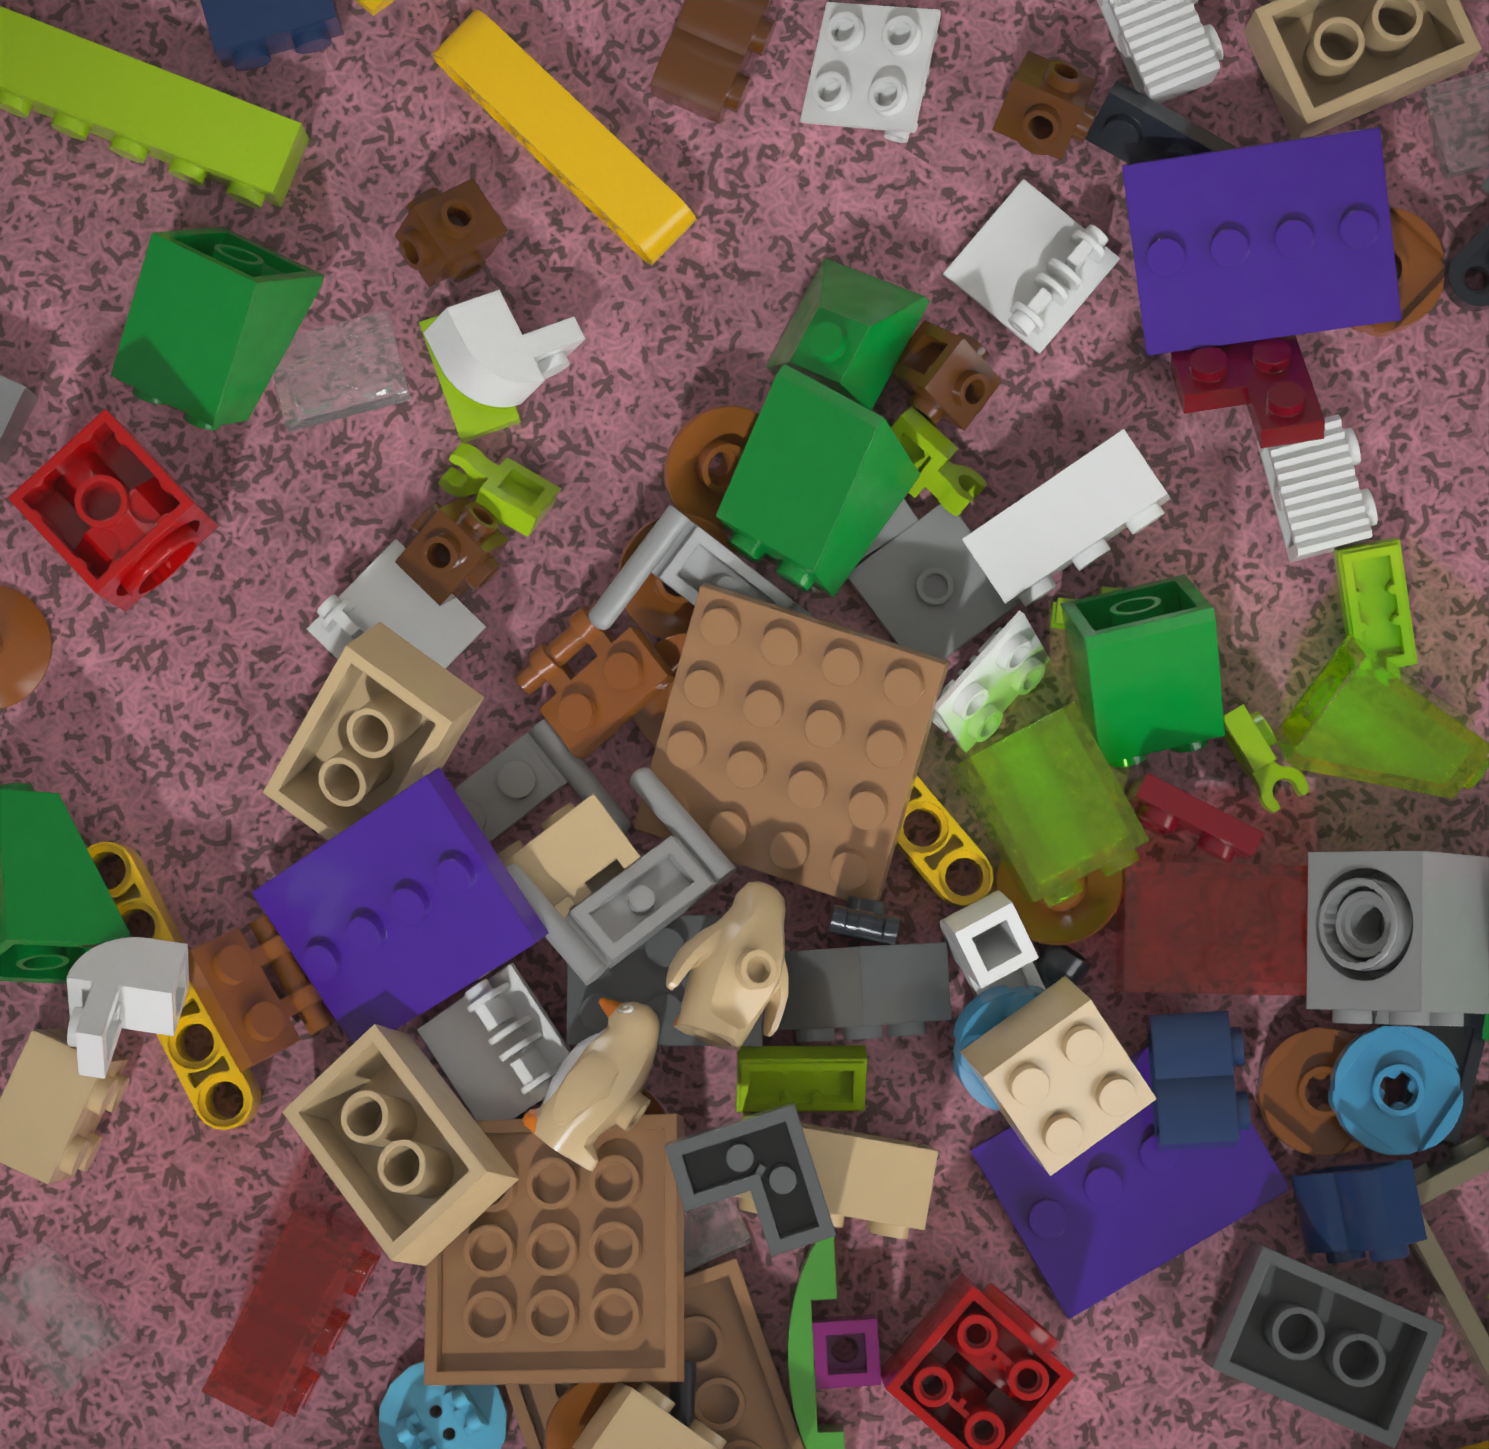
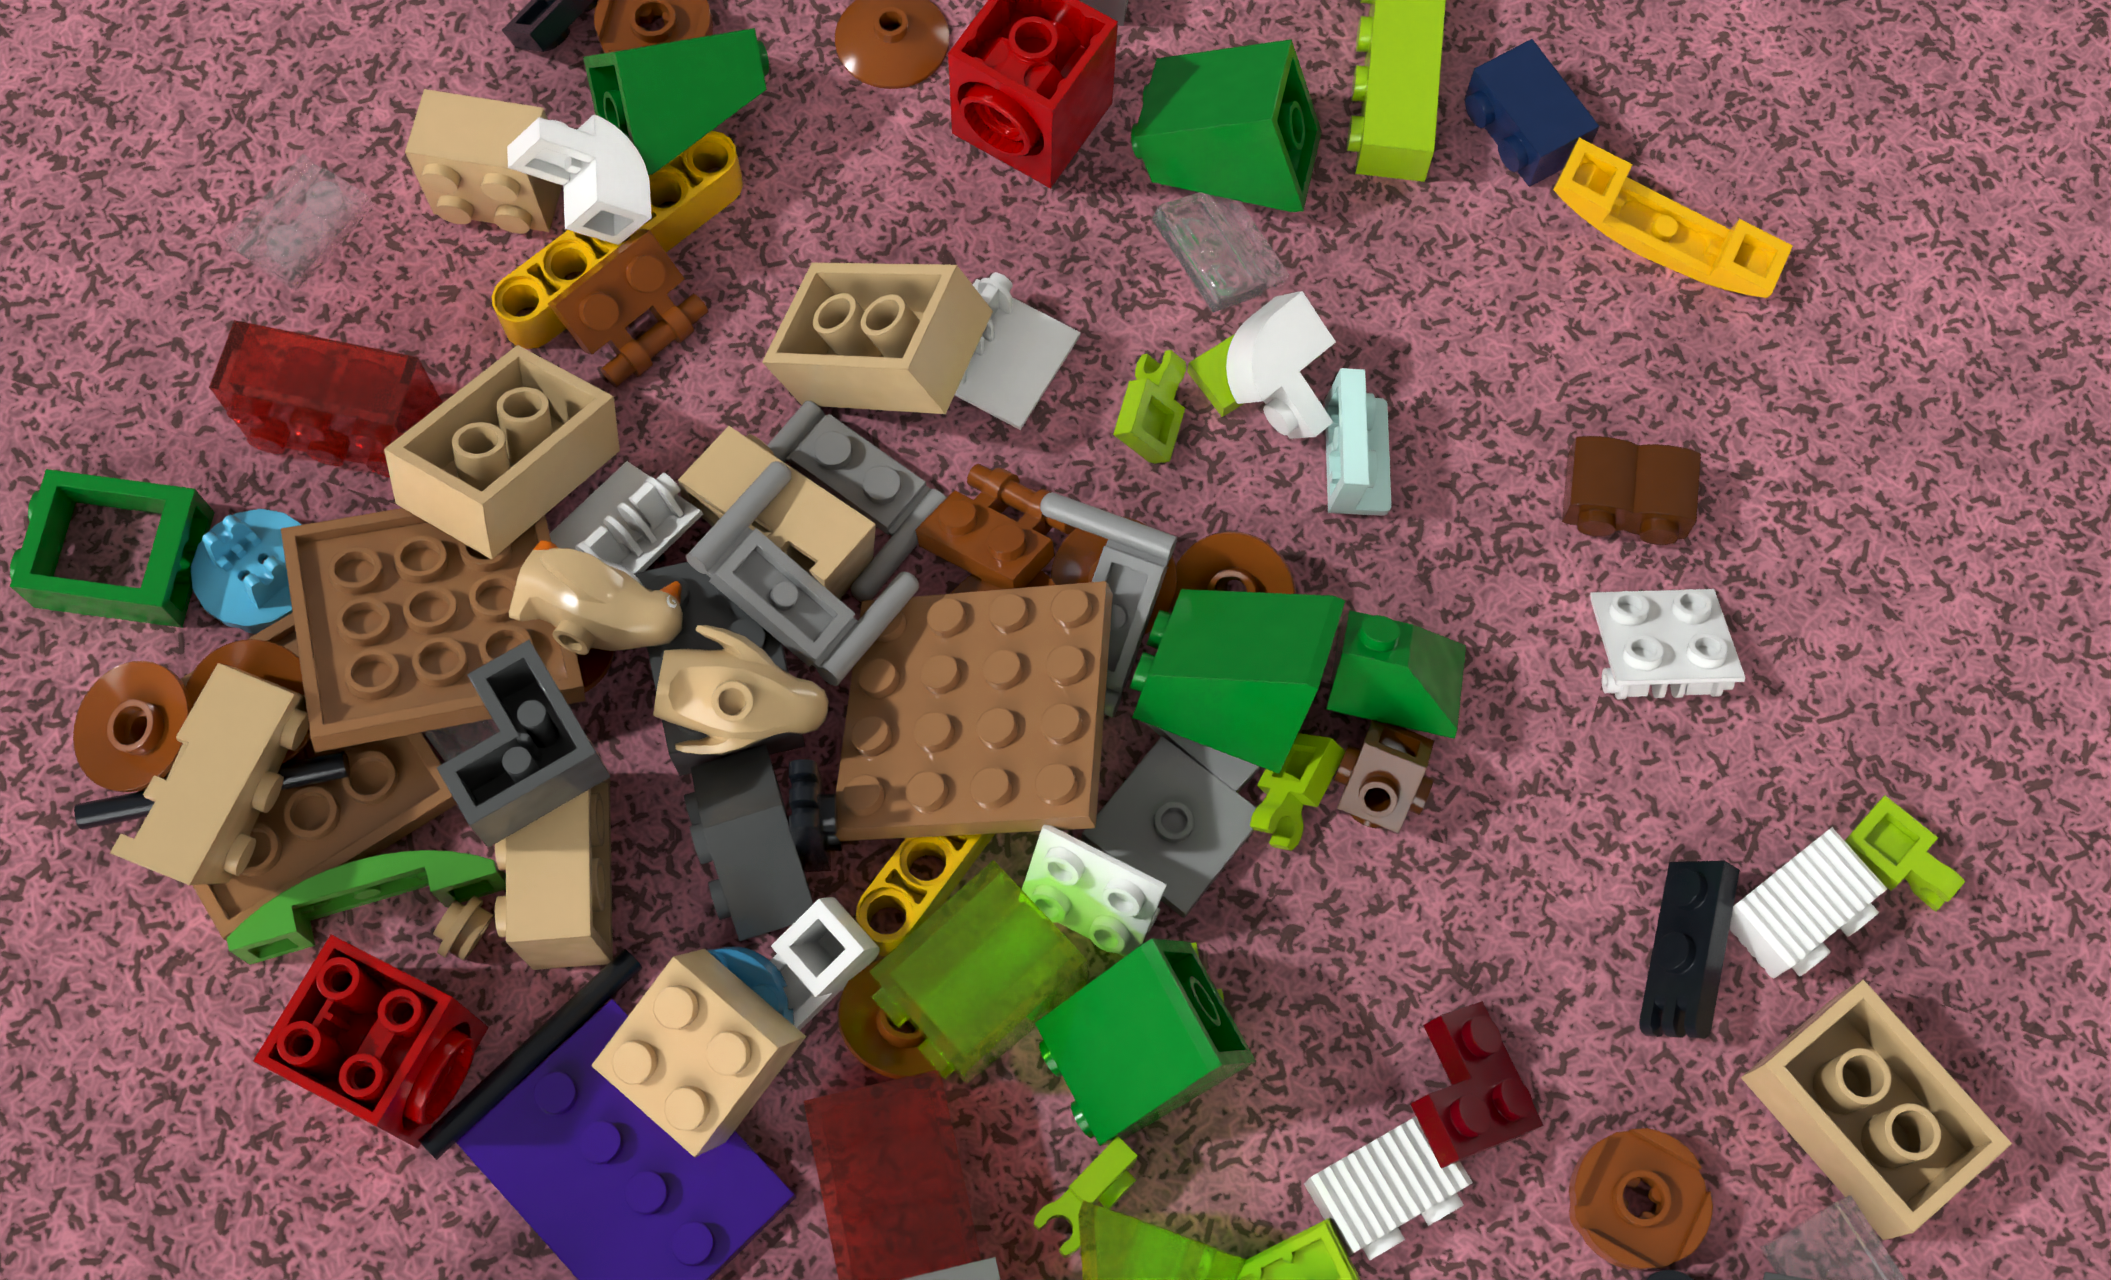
camera: 75 degrees right, 15 degrees down
(400, 909) = (729, 395): dark purple plate -> none
(449, 233) = (1376, 301): reddish brown brick -> none
(453, 549) = (1081, 373): reddish brown brick -> none
(564, 137) = (1498, 384): yellow beam -> none
(601, 300) = (1357, 448): none -> light aqua bracket
(807, 1075) = (650, 813): lime plate -> none
(857, 1371) = (368, 905): magenta plate -> none
(868, 1277) = (462, 928): none -> tan plate
(1002, 1235) = (530, 1054): none -> black bar
(1032, 266) = (1524, 843): white hinge -> none
(1047, 106) = (1688, 807): reddish brown brick -> none
(1061, 961) = (823, 1047): black hinge -> none
(1068, 520) = (1281, 929): white wedge -> none
(1169, 809) = (1004, 1102): dark red plate -> none
(1194, 1080) = (726, 1203): dark blue brick -> none
(1262, 241) = (1629, 1058): dark purple plate -> none

